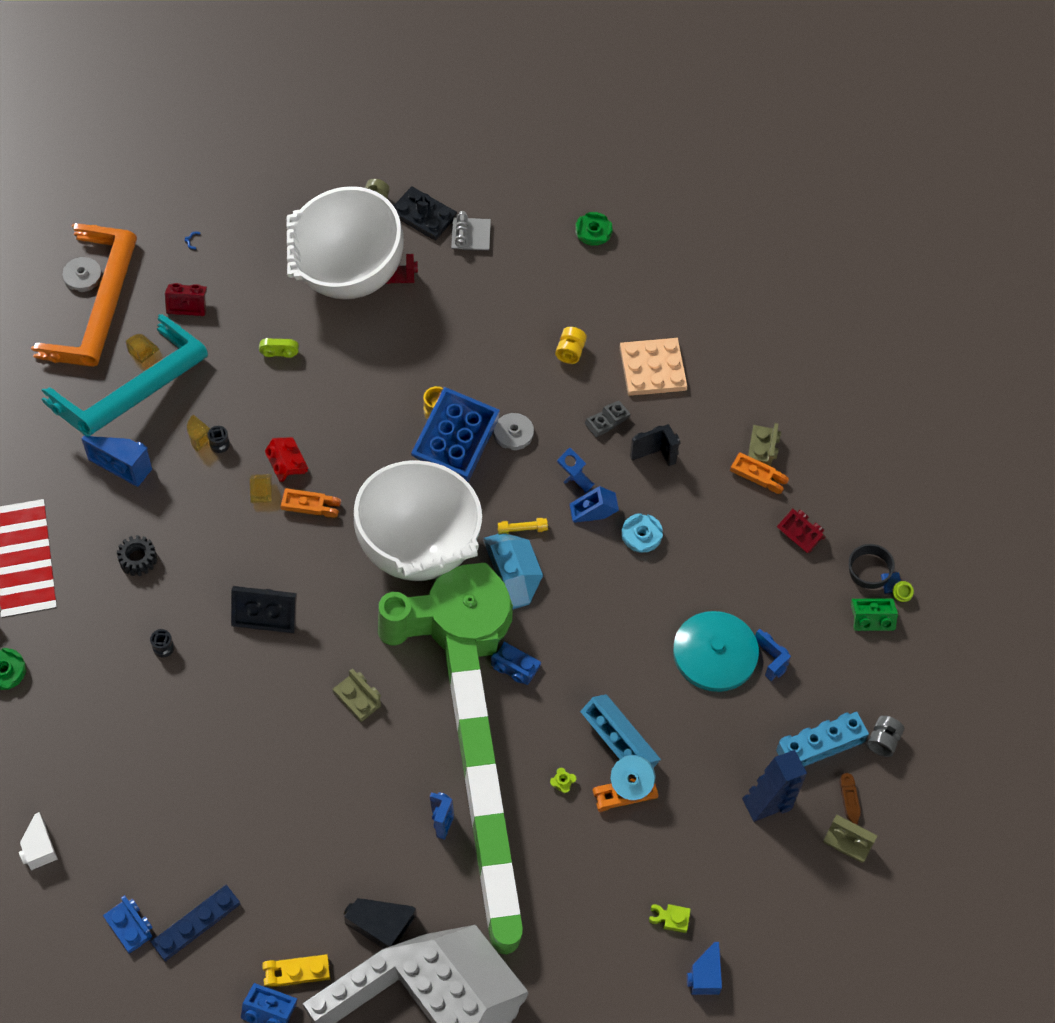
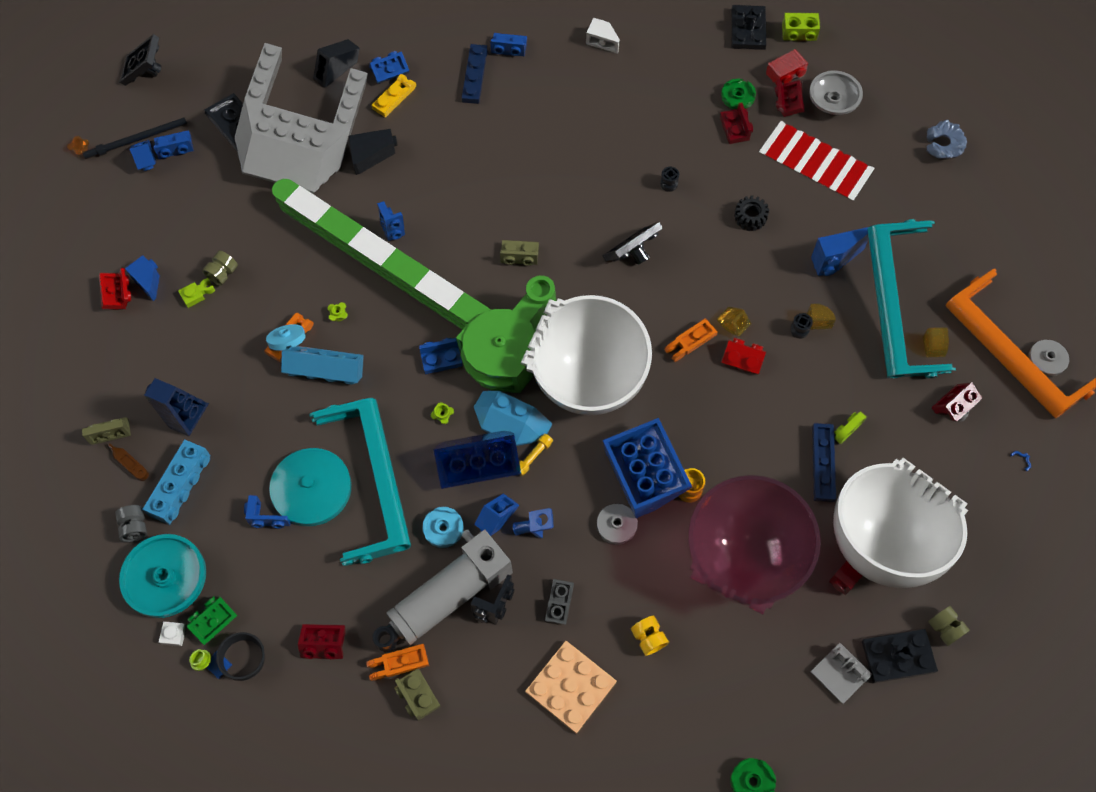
camera: 140 degrees right, 5 degrees up
(42, 643) = (736, 124): none -> dark red bracket
(325, 345) = (824, 462): none -> dark blue plate
(452, 311) = (753, 541): none -> clear pink windscreen
(563, 613) = (441, 407): none -> lime plate
(569, 549) = (477, 459): none -> clear blue windscreen
(631, 914) = (219, 268): none -> olive wheel
(651, 607) = (387, 489): none -> teal piece
(671, 478) = (446, 591): none -> light grey piece
(745, 983) = (114, 290): none -> red bracket
(889, 670) = (162, 576): none -> teal dish
(911, 630) = (172, 633): none -> white plate

